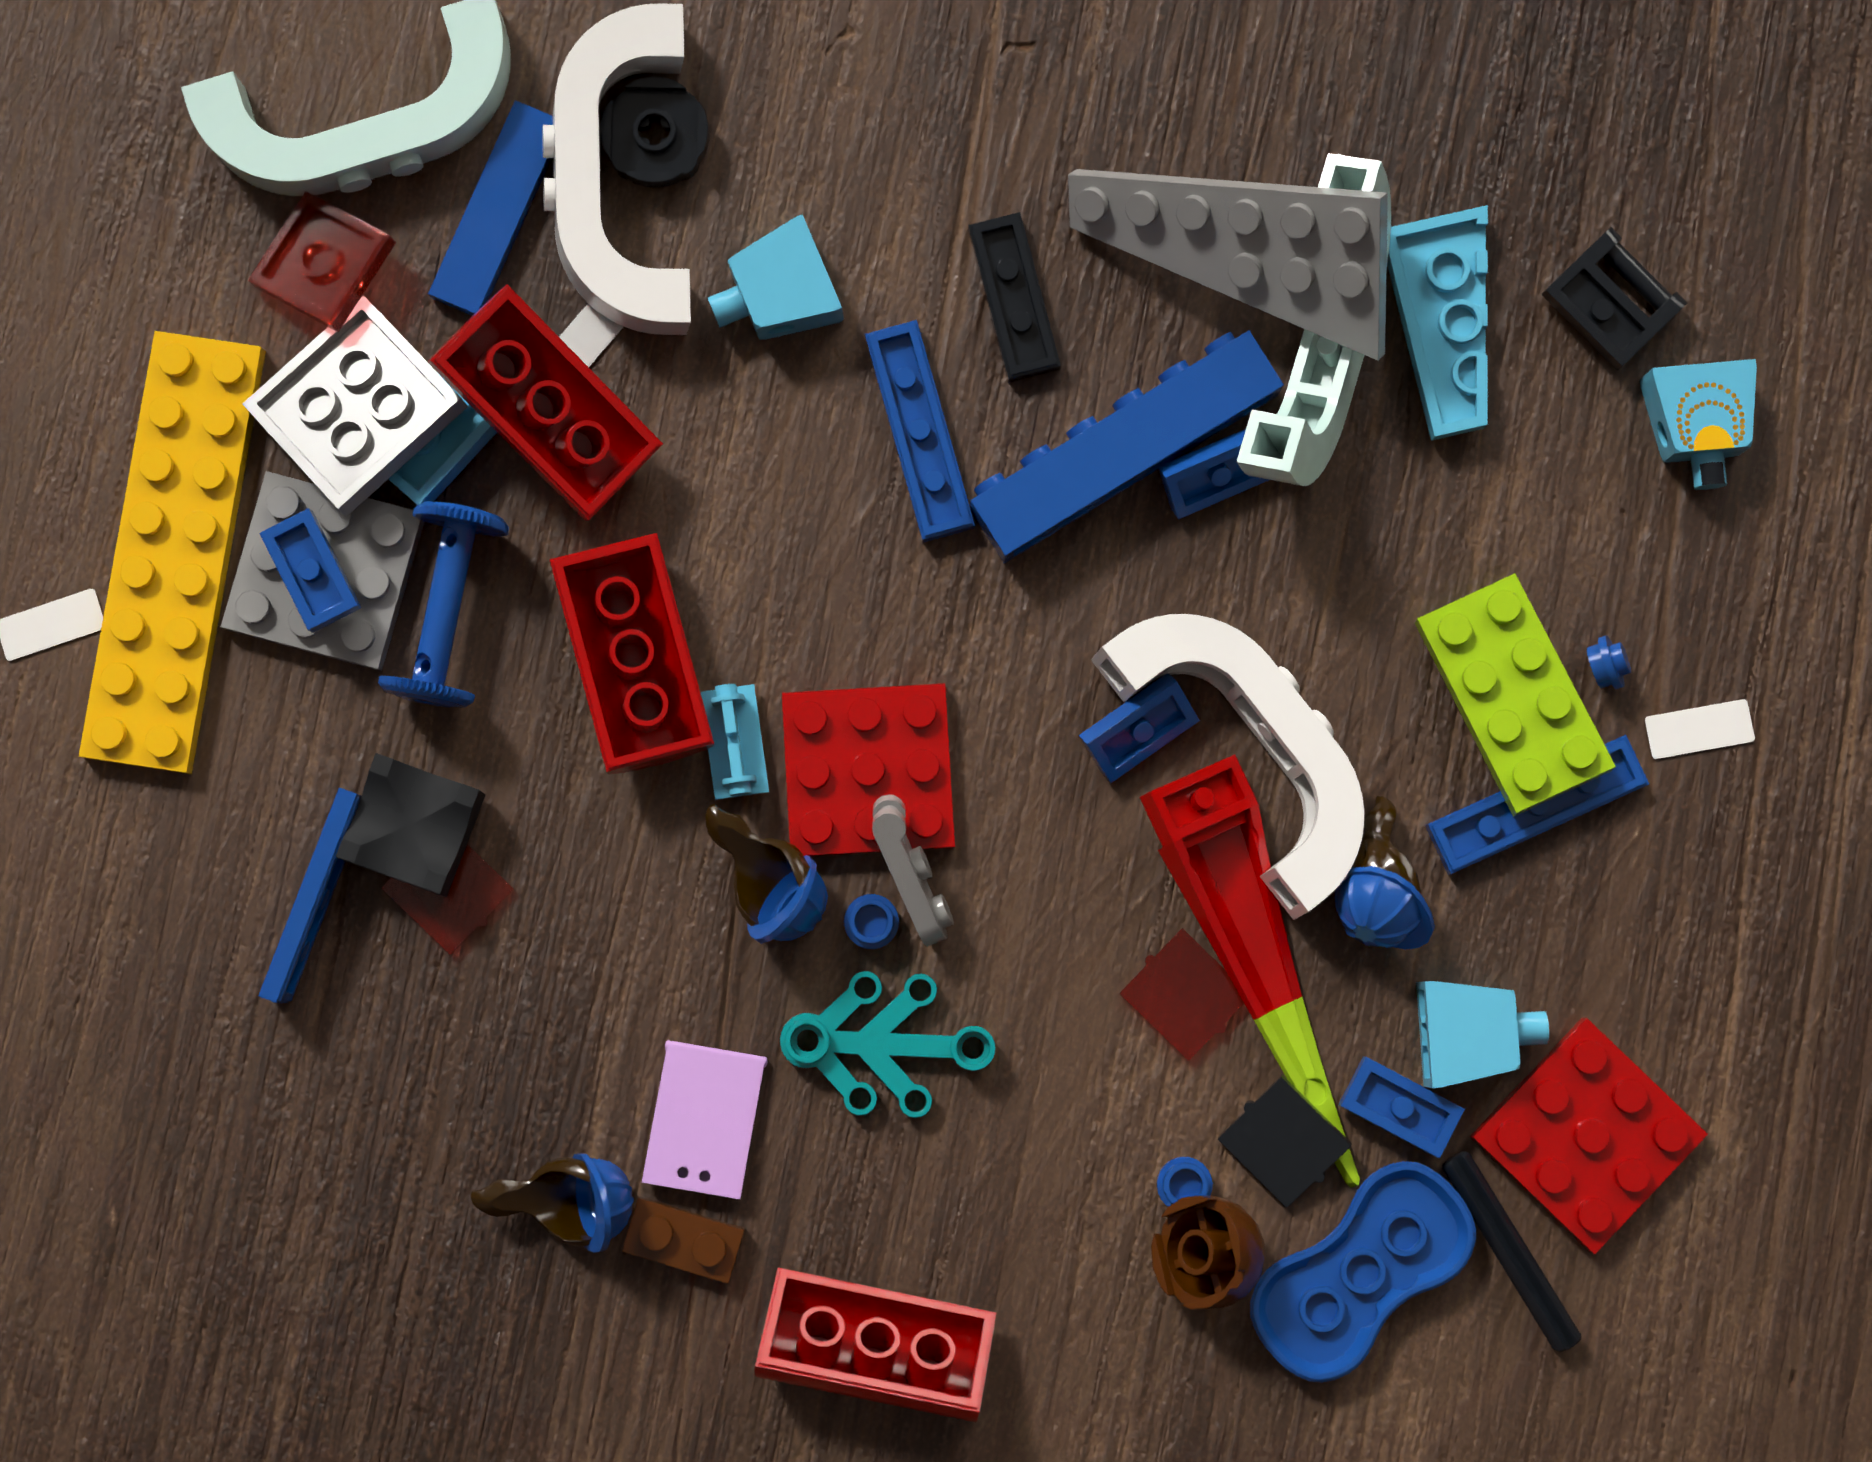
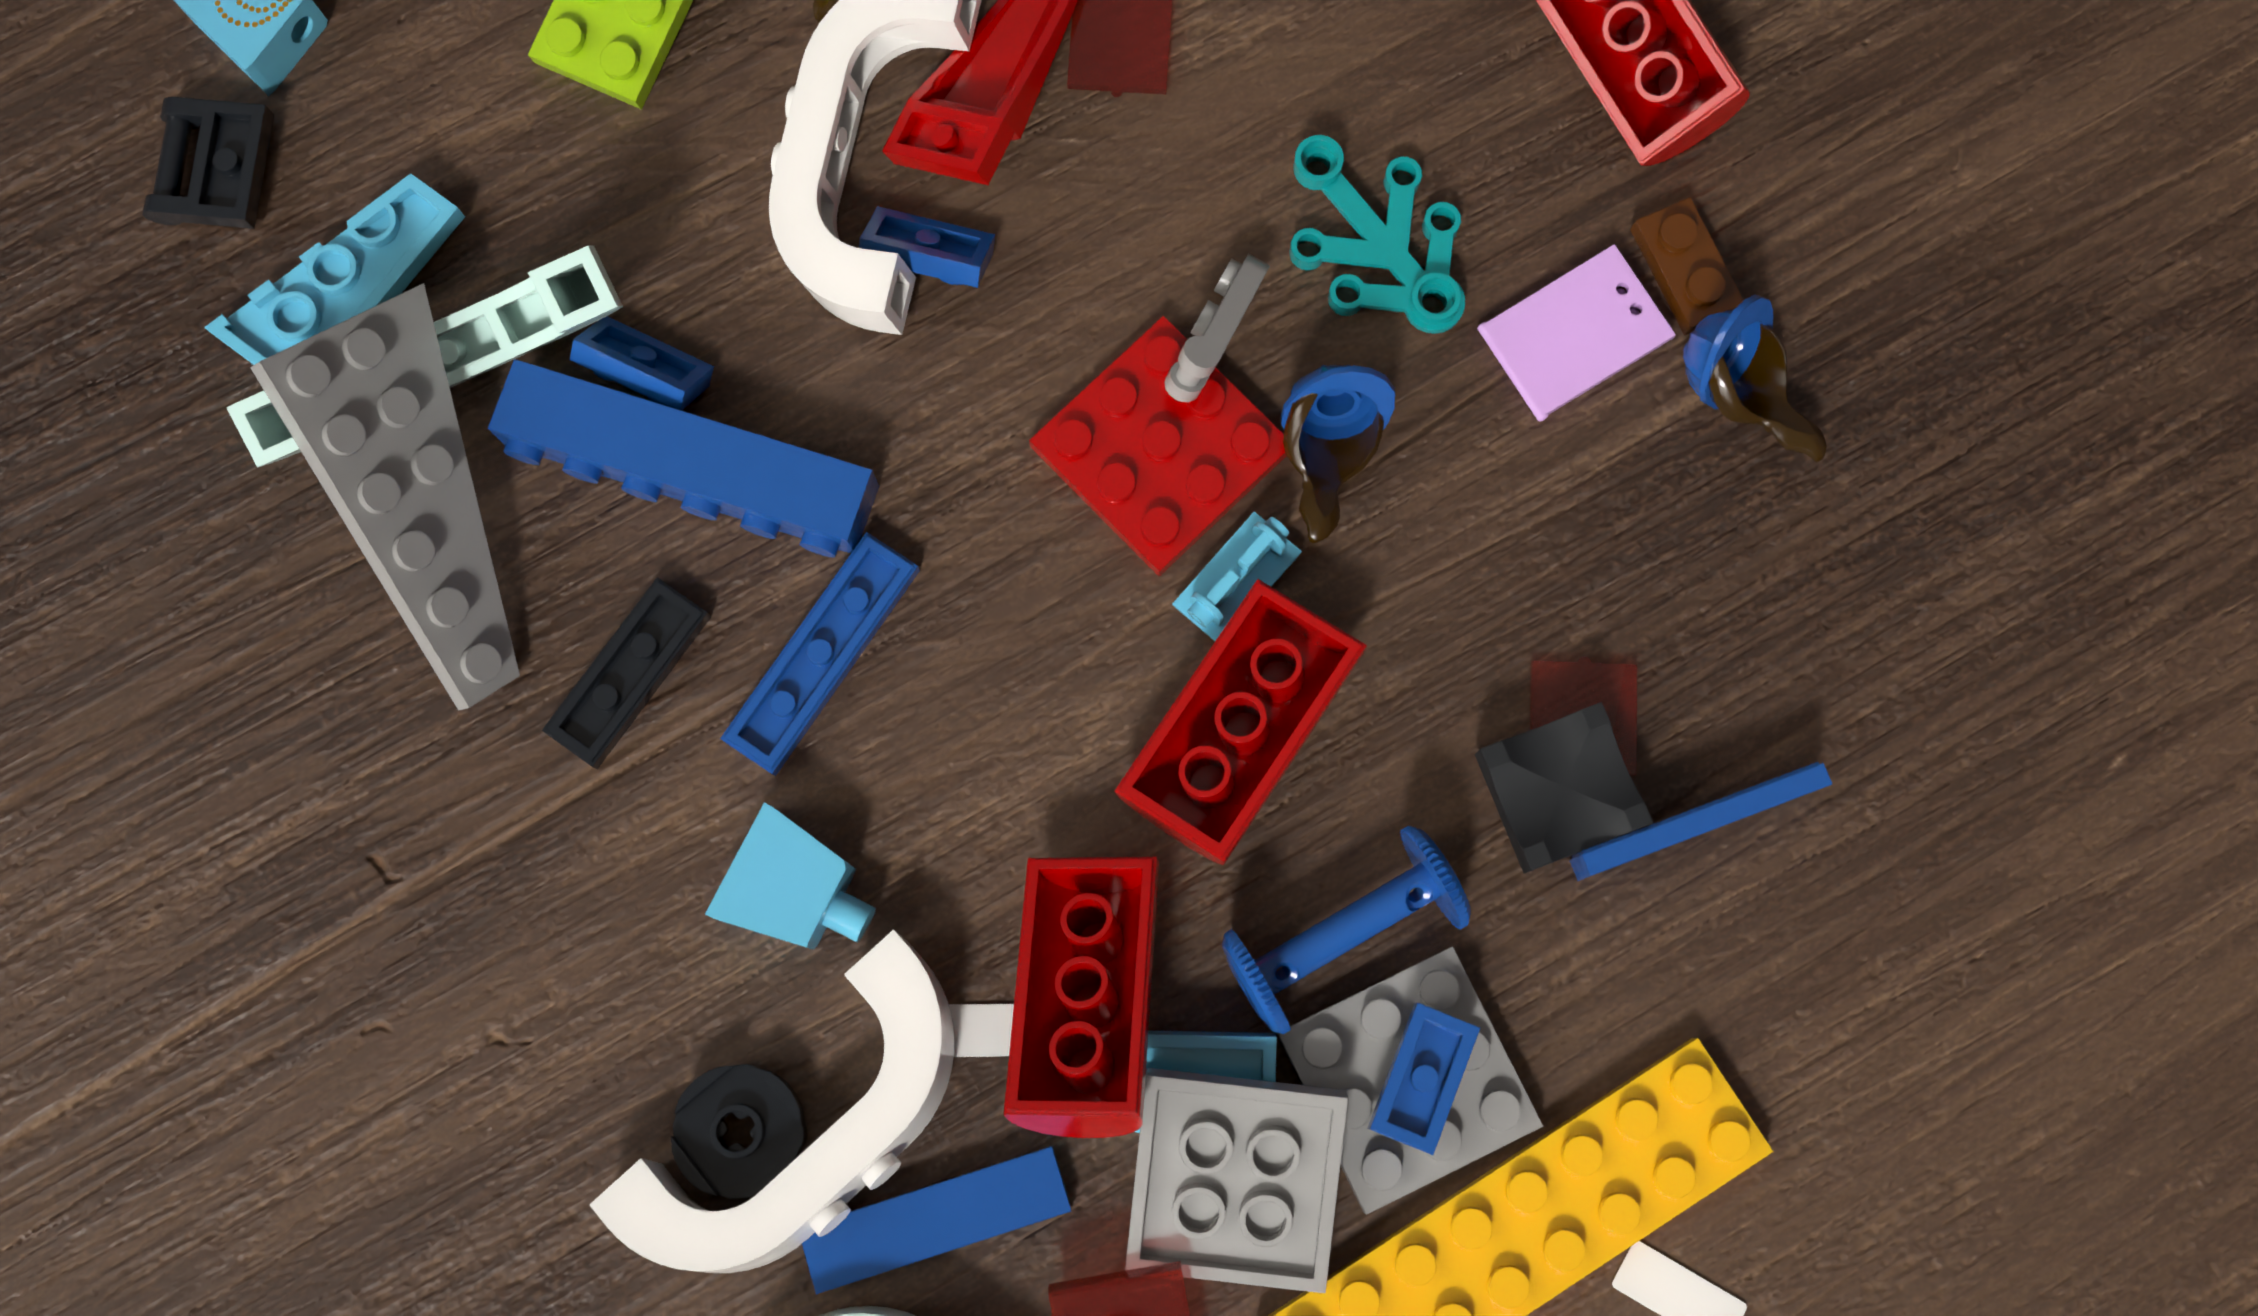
camera: 130 degrees left, 5 degrees down
(871, 921) = (1287, 334): blue plate -> none

